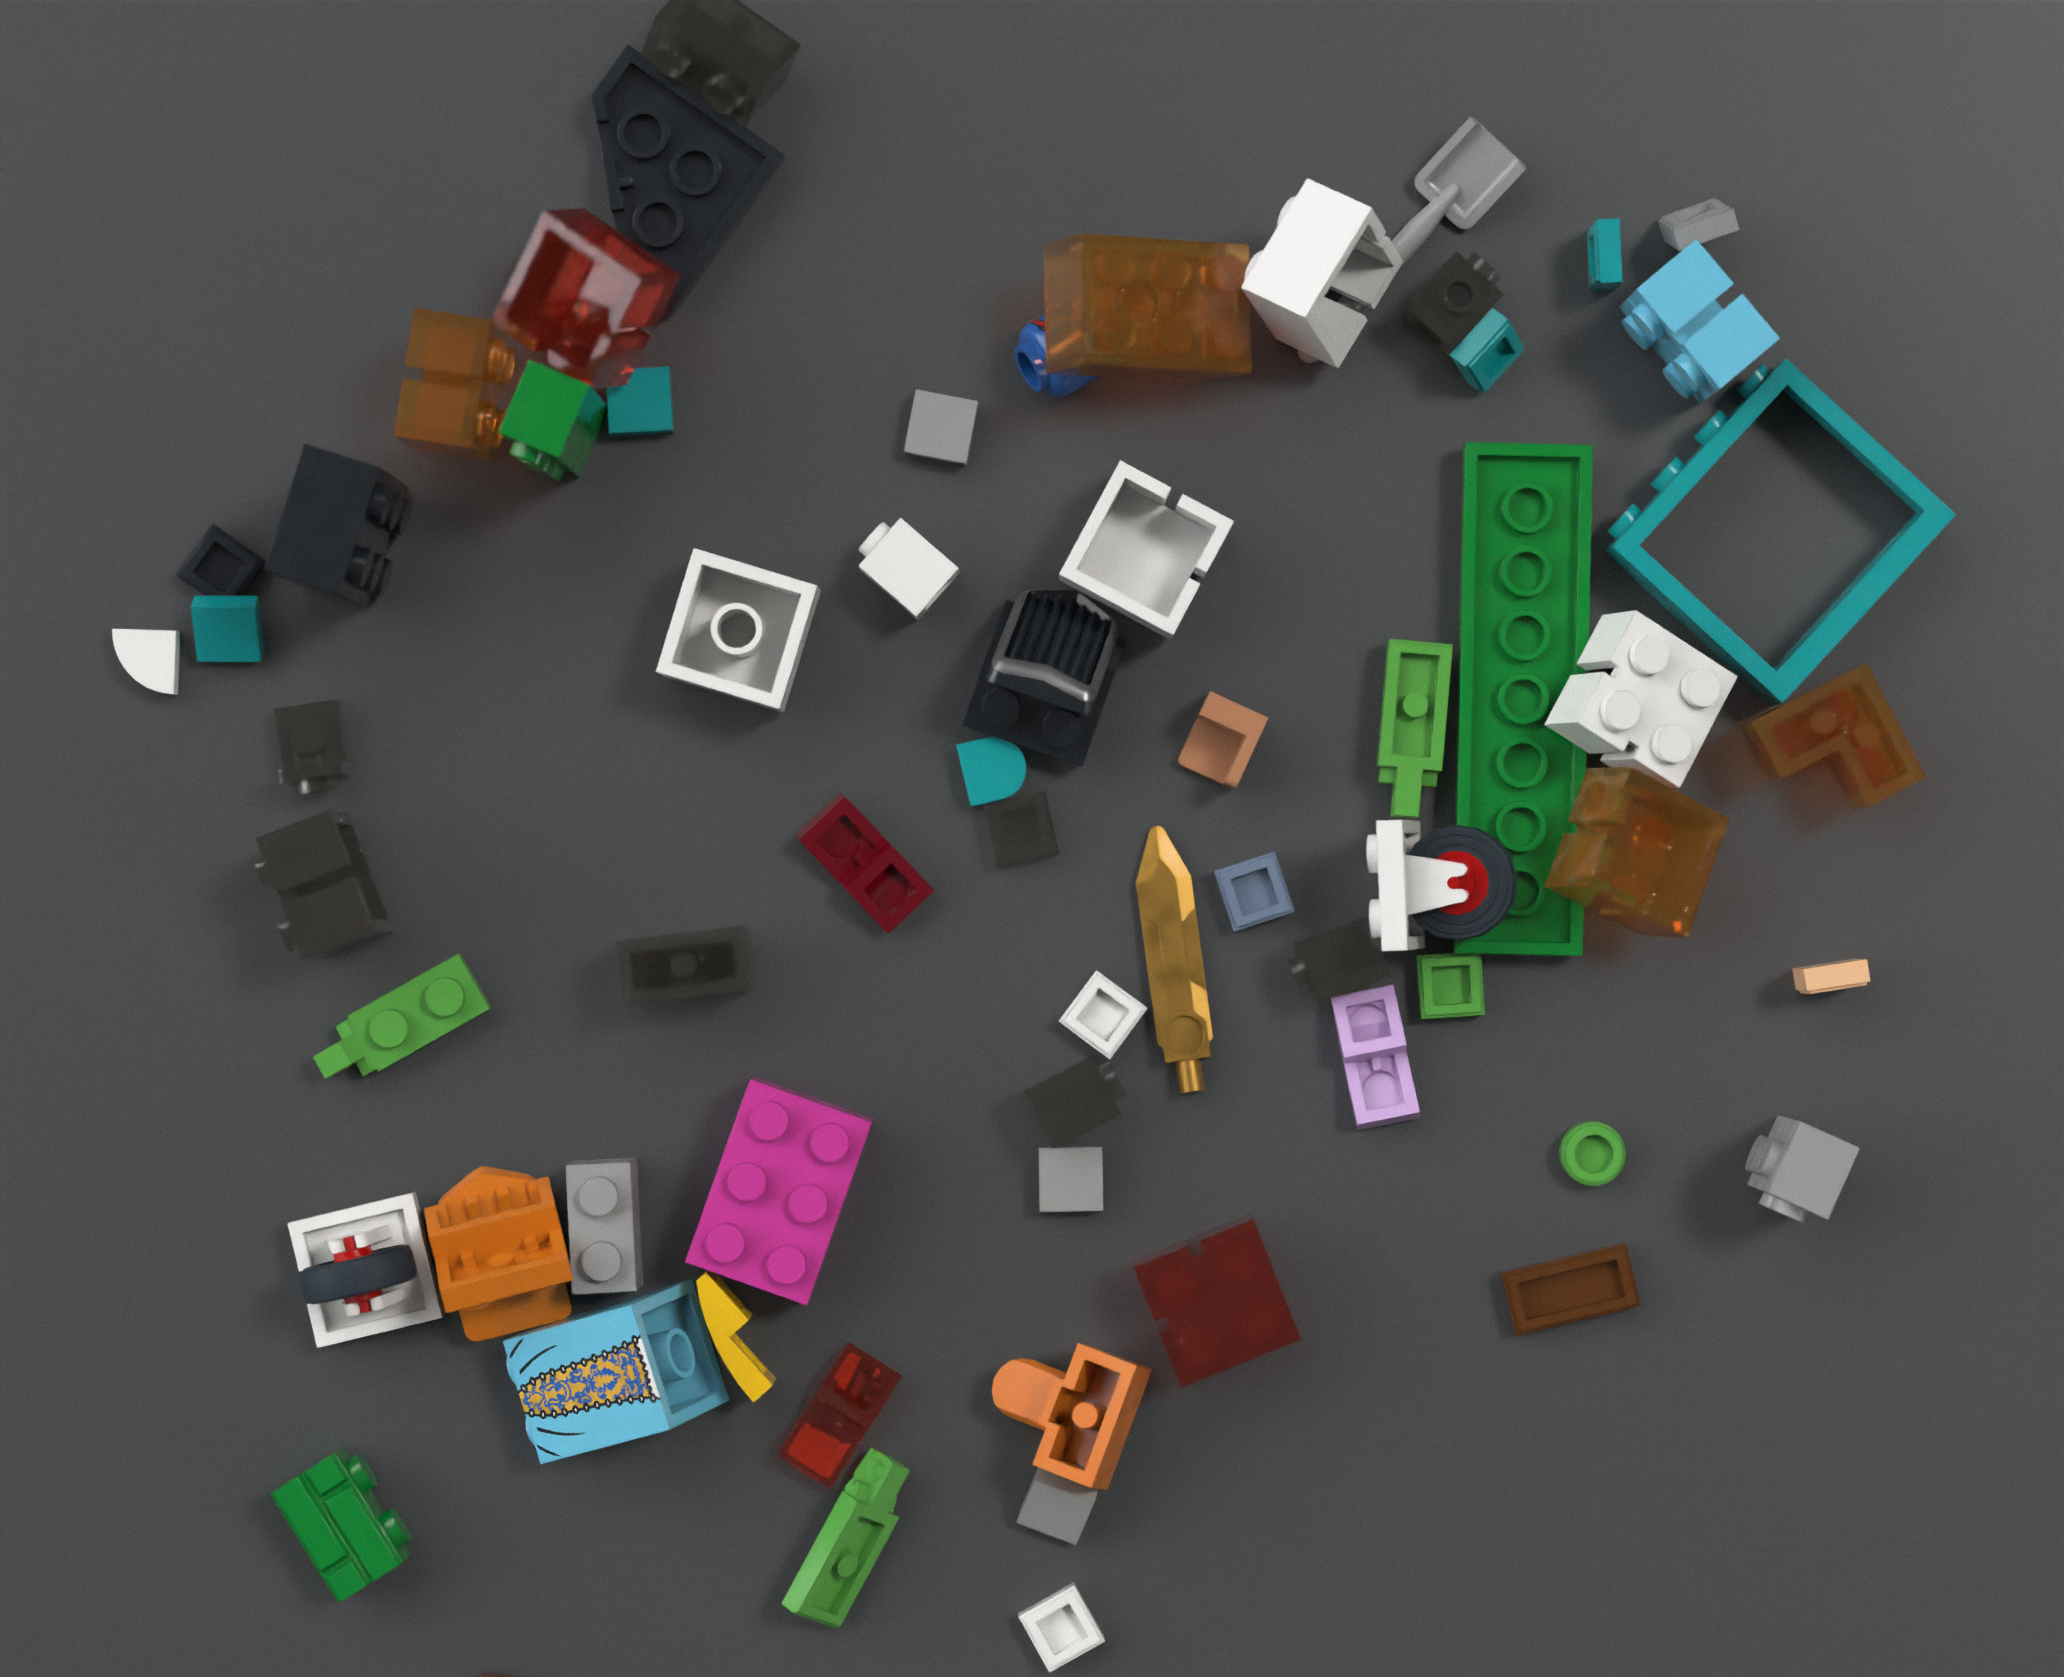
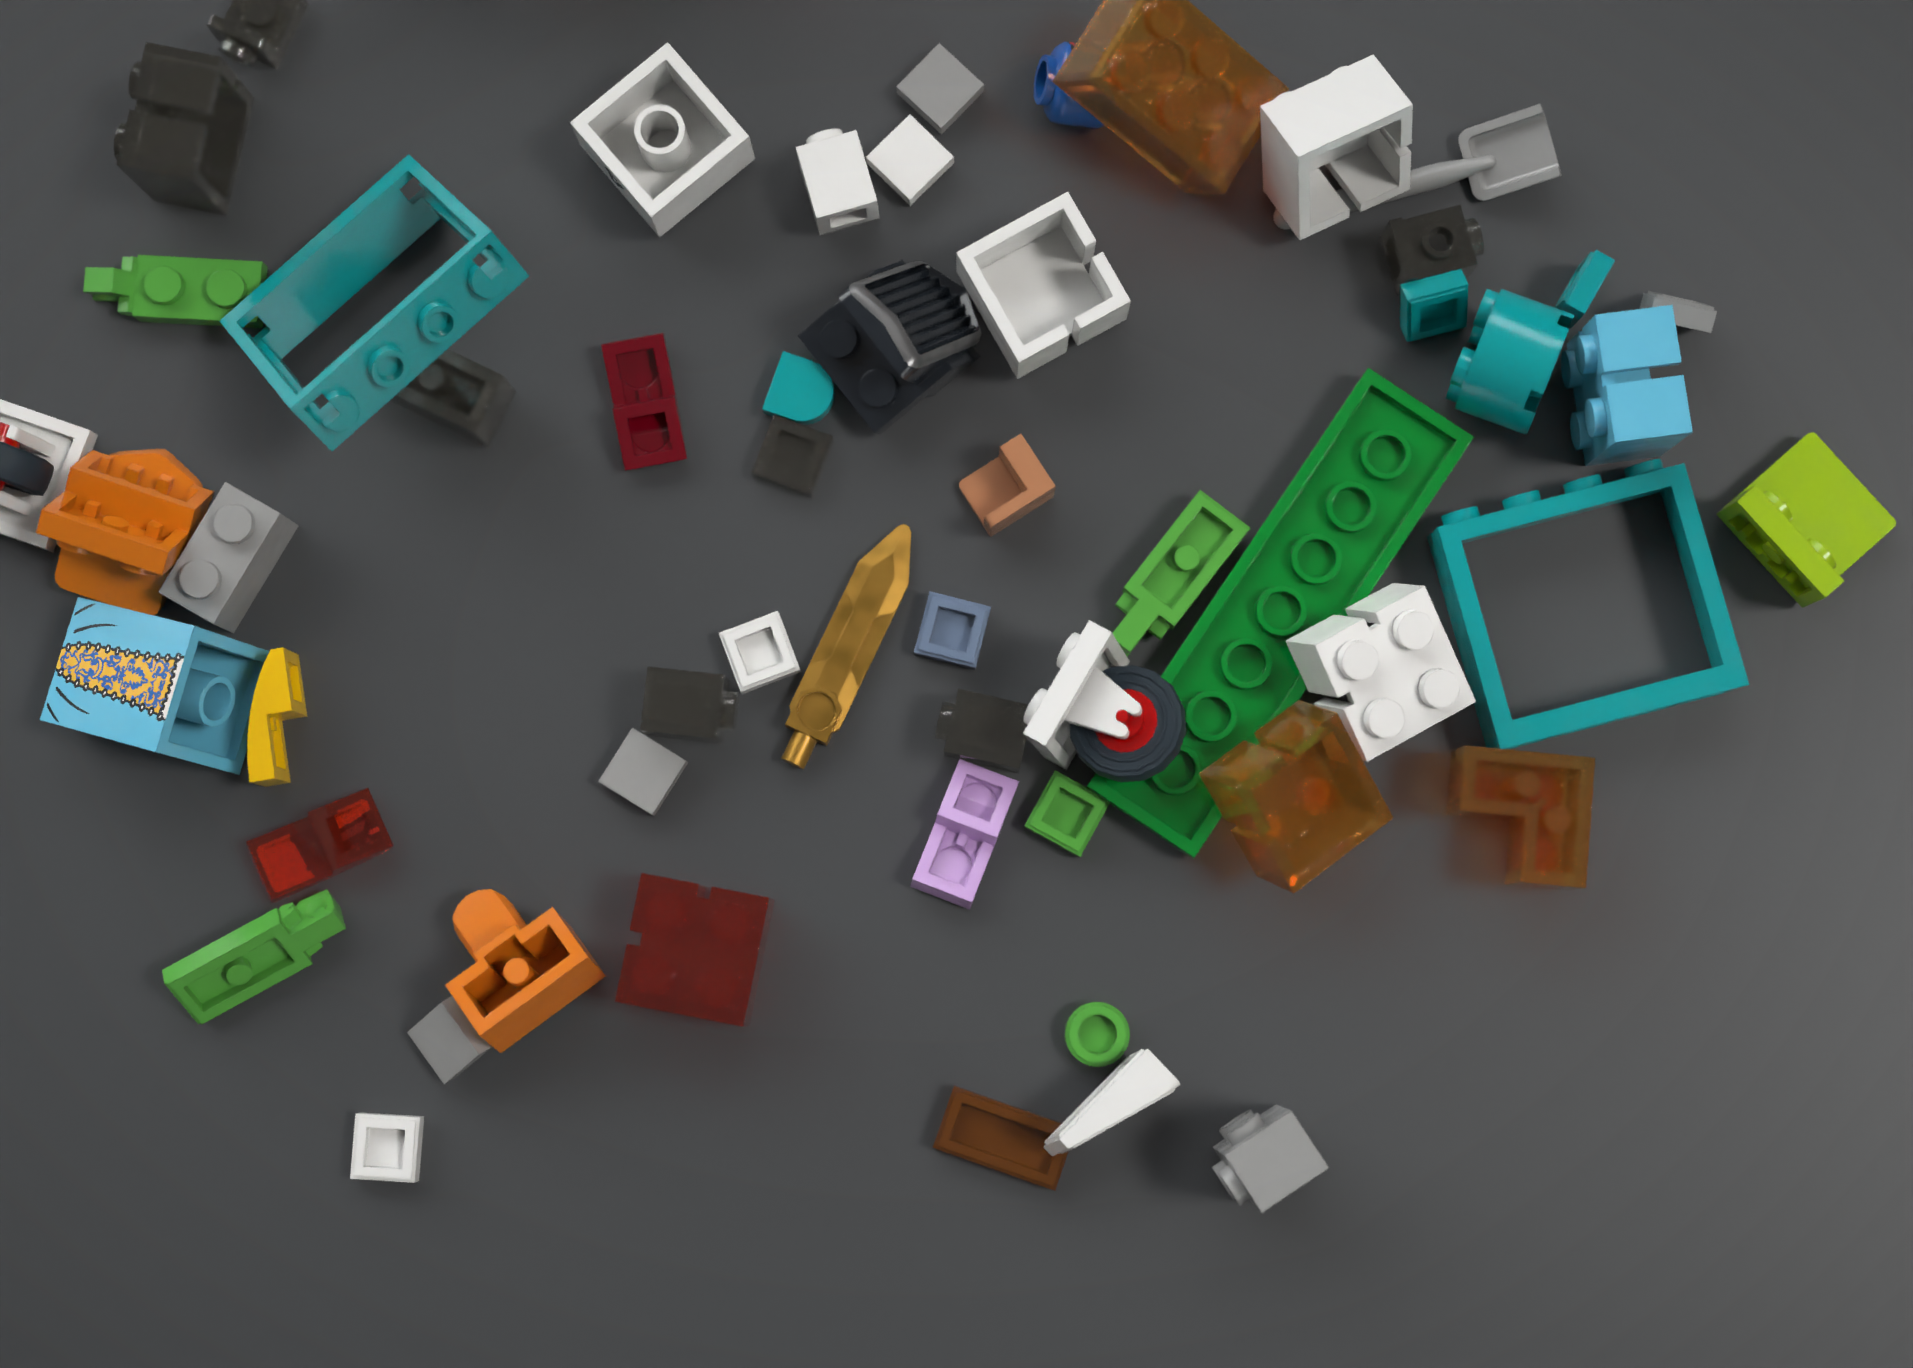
camera: 35 degrees right, 5 degrees down
(527, 919) = (343, 262): none -> teal window
(779, 1190) = (392, 622): dark pink brick -> none
(955, 507) = (910, 159): none -> white tile
(1585, 362) = (1512, 359): none -> teal brick
(1647, 1190) = (1127, 1090): none -> white slope
(1831, 976) = (1397, 1011): light nougat tile -> none
(1918, 333) = (1807, 520): none -> lime bracket

